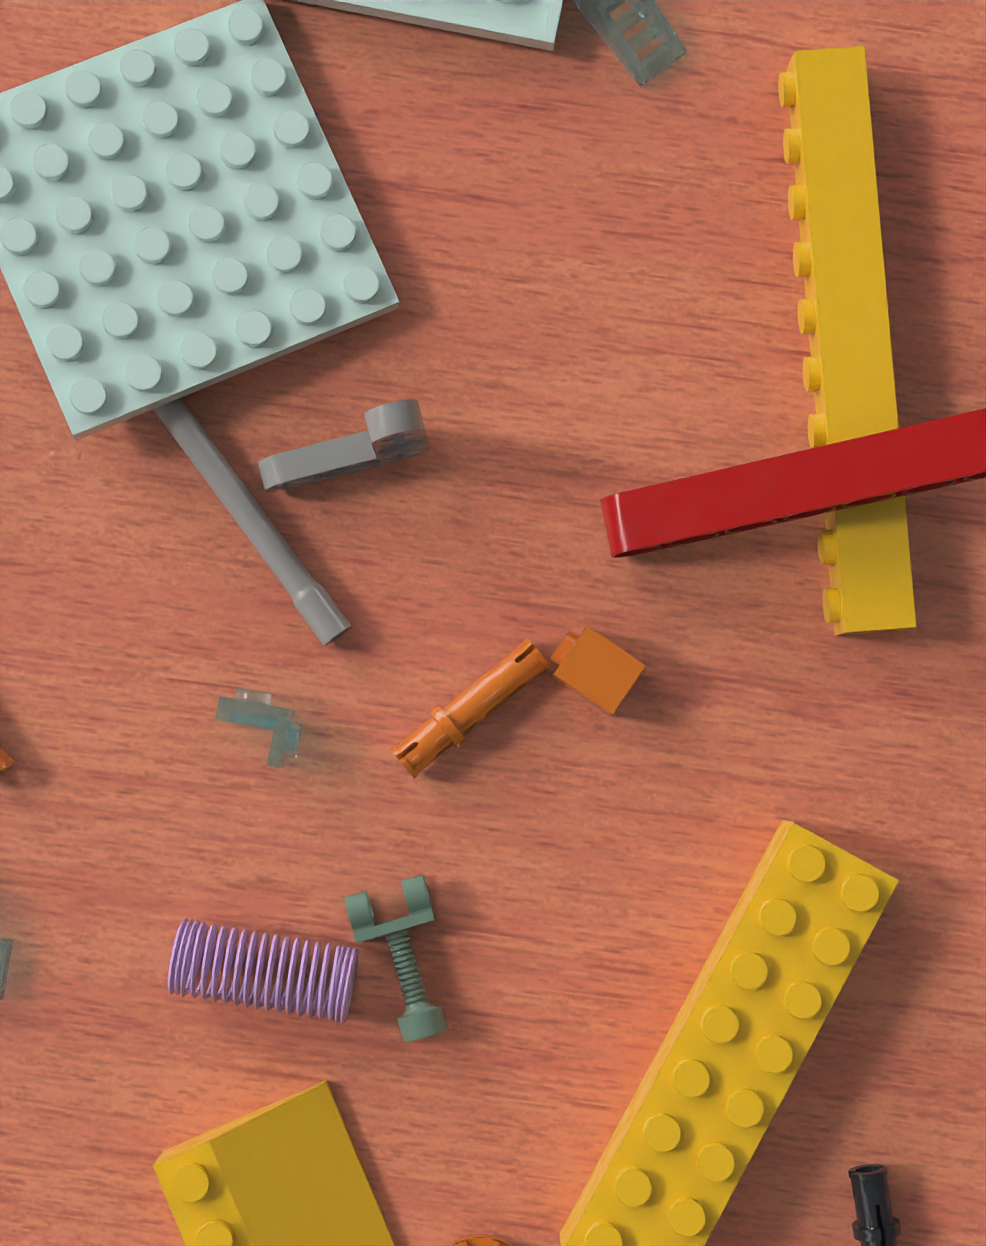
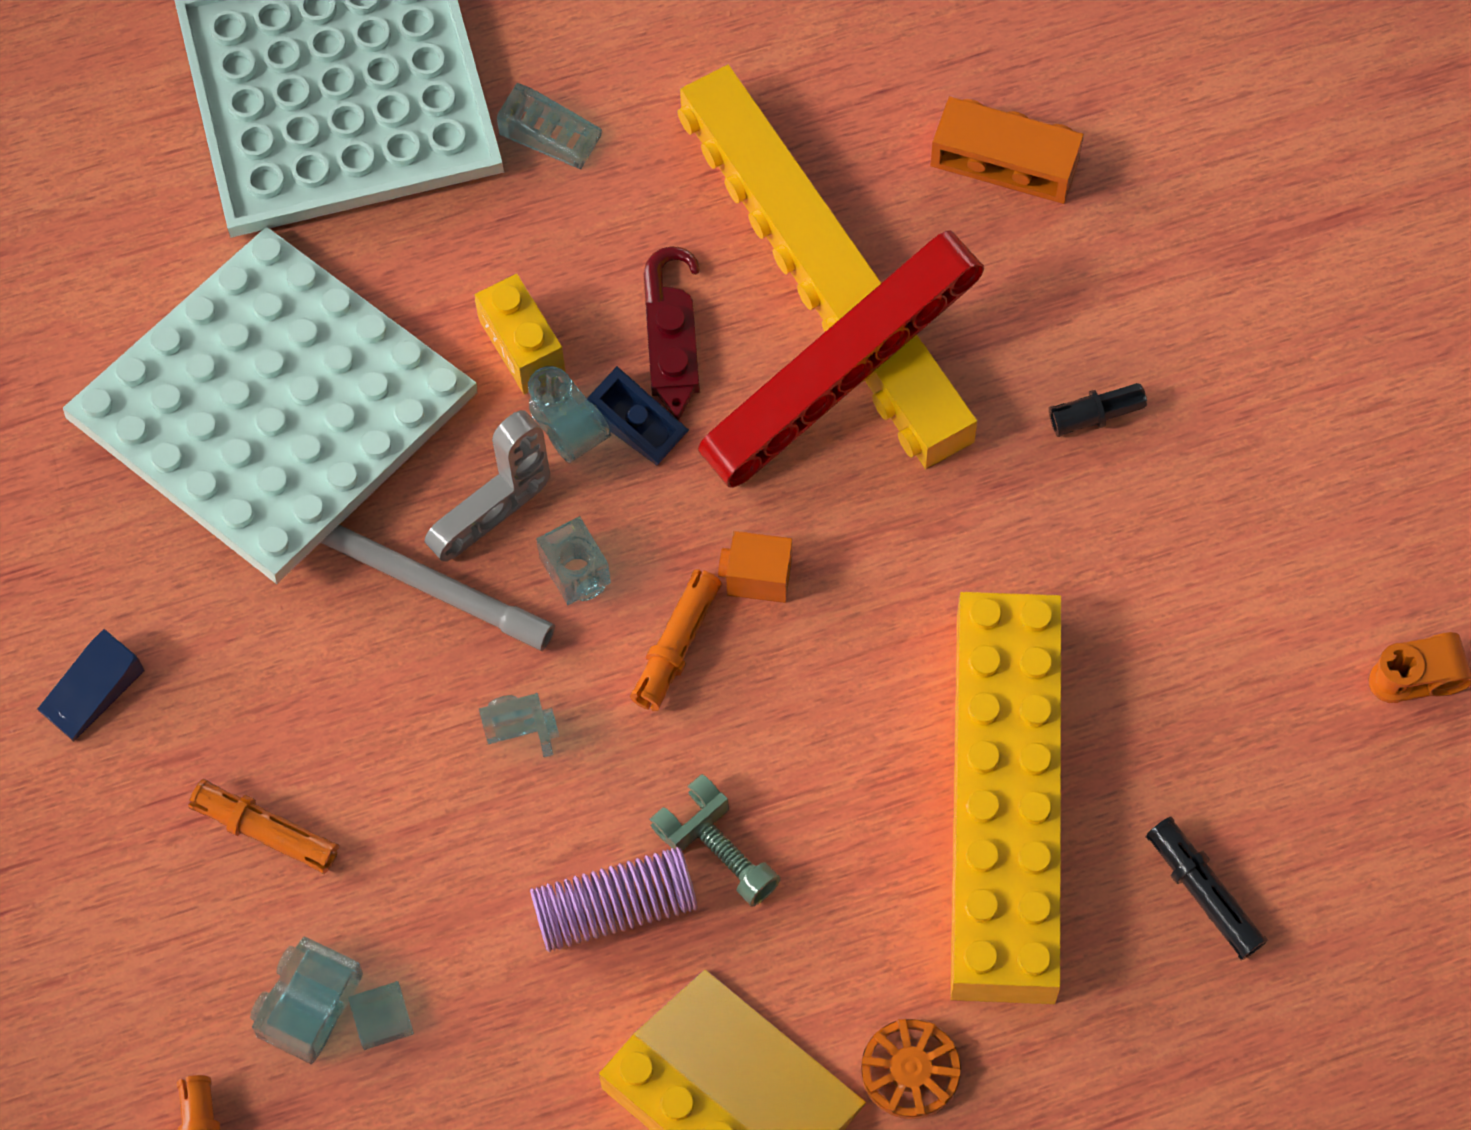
camera: 20 degrees left, 20 degrees down
(399, 542) = (570, 543): none -> clear light blue brick
(473, 266) = (518, 329): none -> yellow brick
(478, 397) = (565, 413): none -> clear light blue piece
(553, 422) = (637, 416): none -> dark blue slope
(641, 338) = (671, 332): none -> dark red plate

